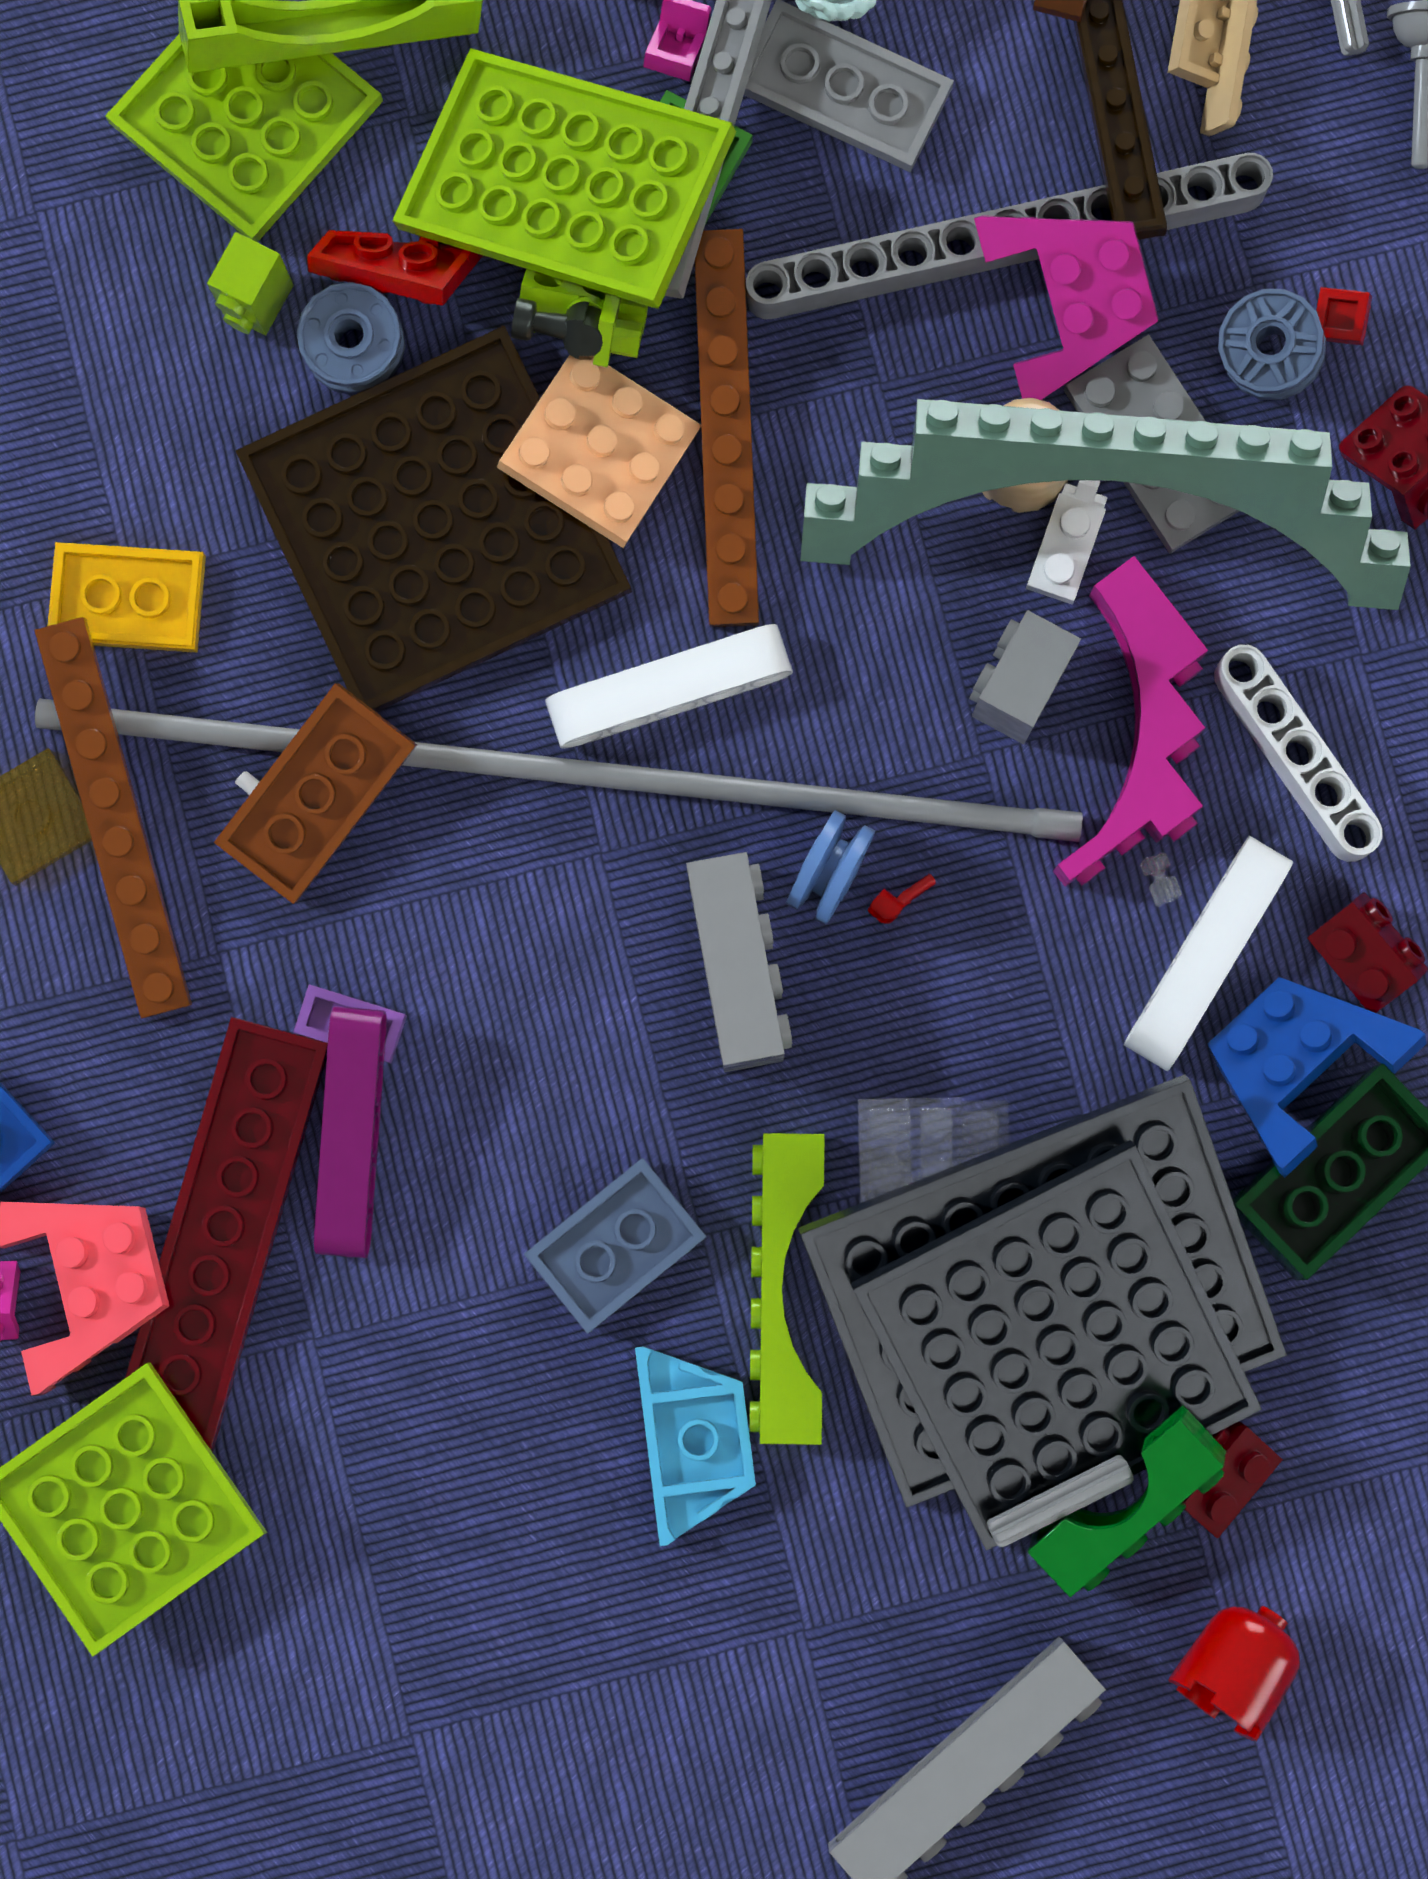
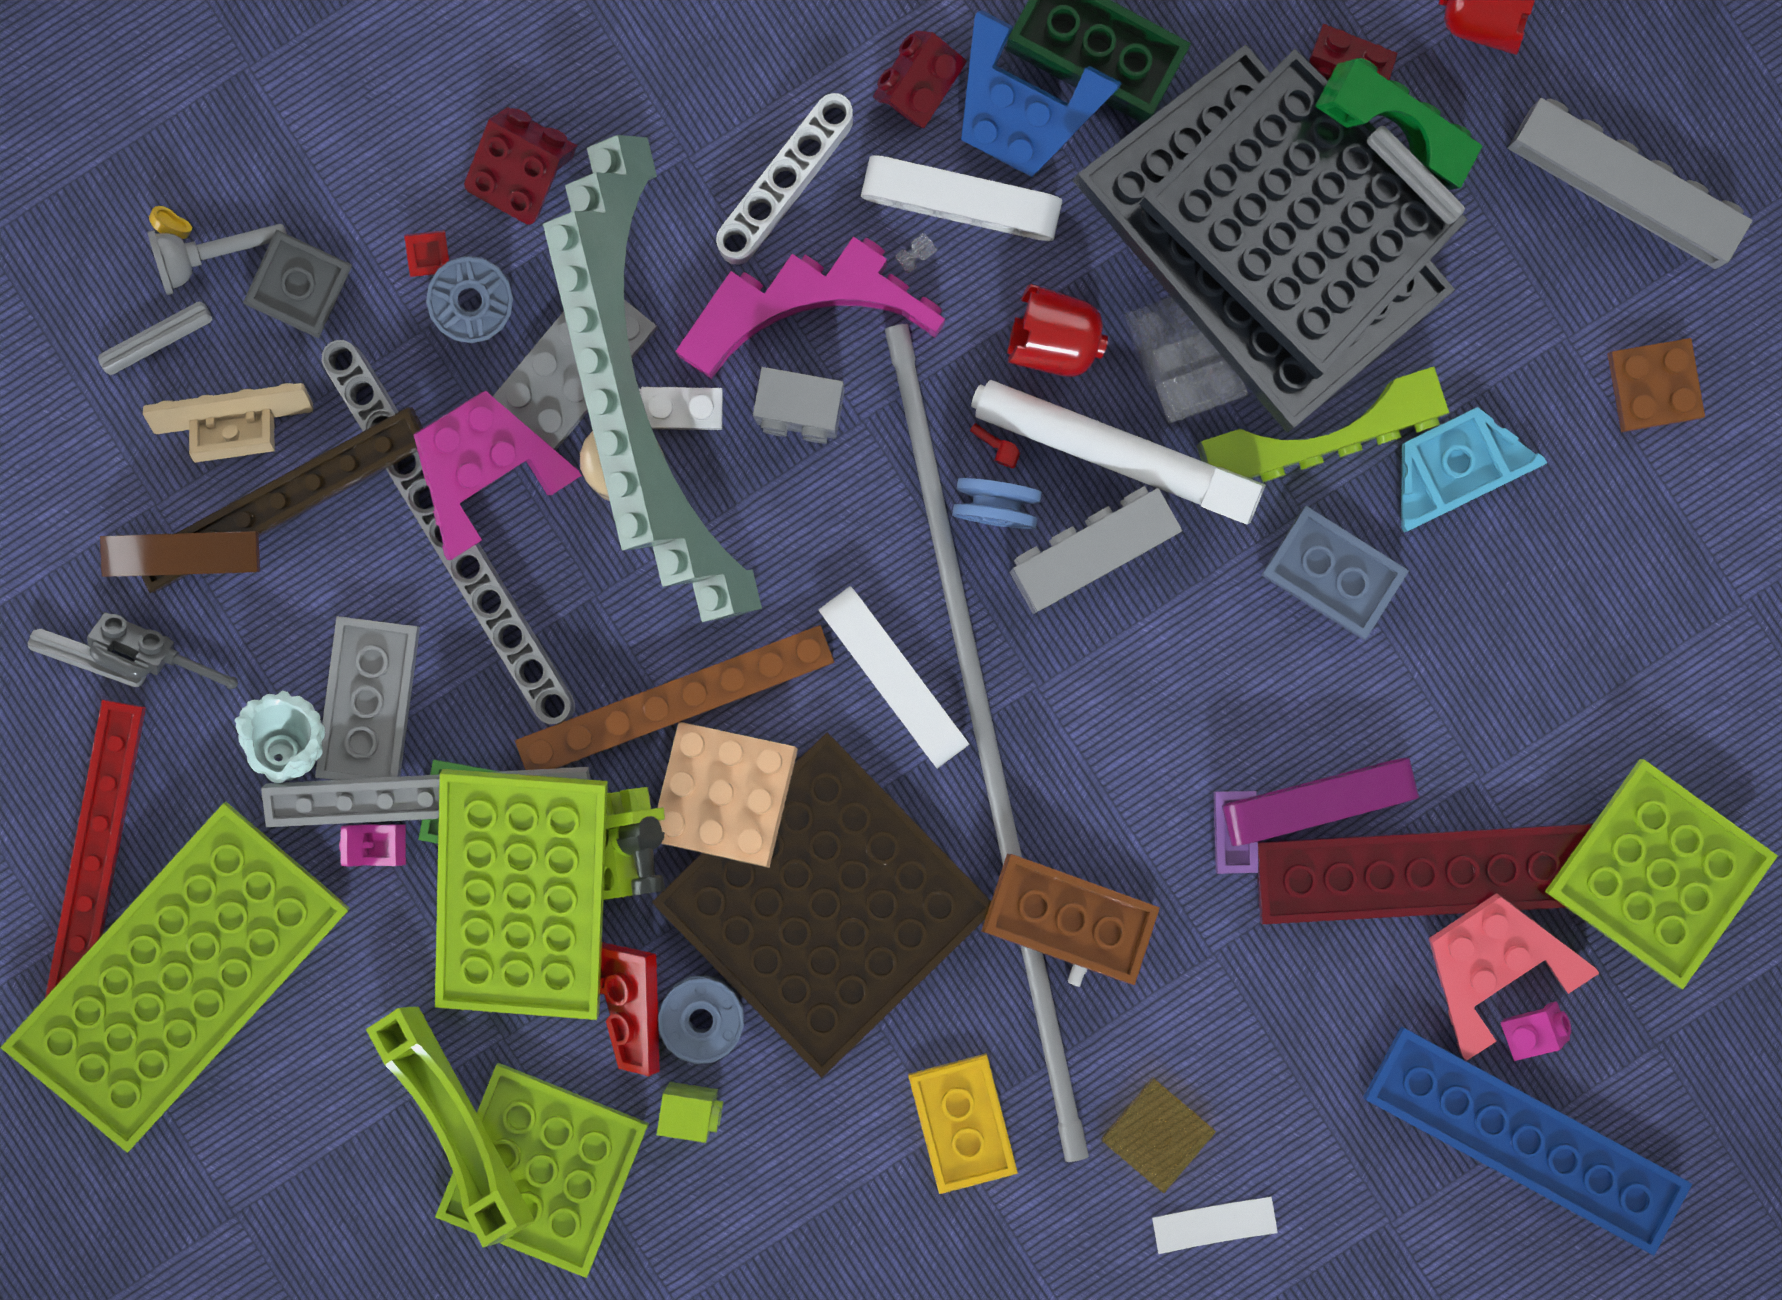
camera: 115 degrees left, 5 degrees up
(113, 817) = (1140, 1070): dark orange plate -> none
(710, 1717) = (1656, 385): none -> dark orange plate
(760, 1126) = (1119, 451): none -> white brick
(1009, 1007) = (1056, 333): none -> red cylinder
(1353, 160) = (297, 284): none -> dark grey tile

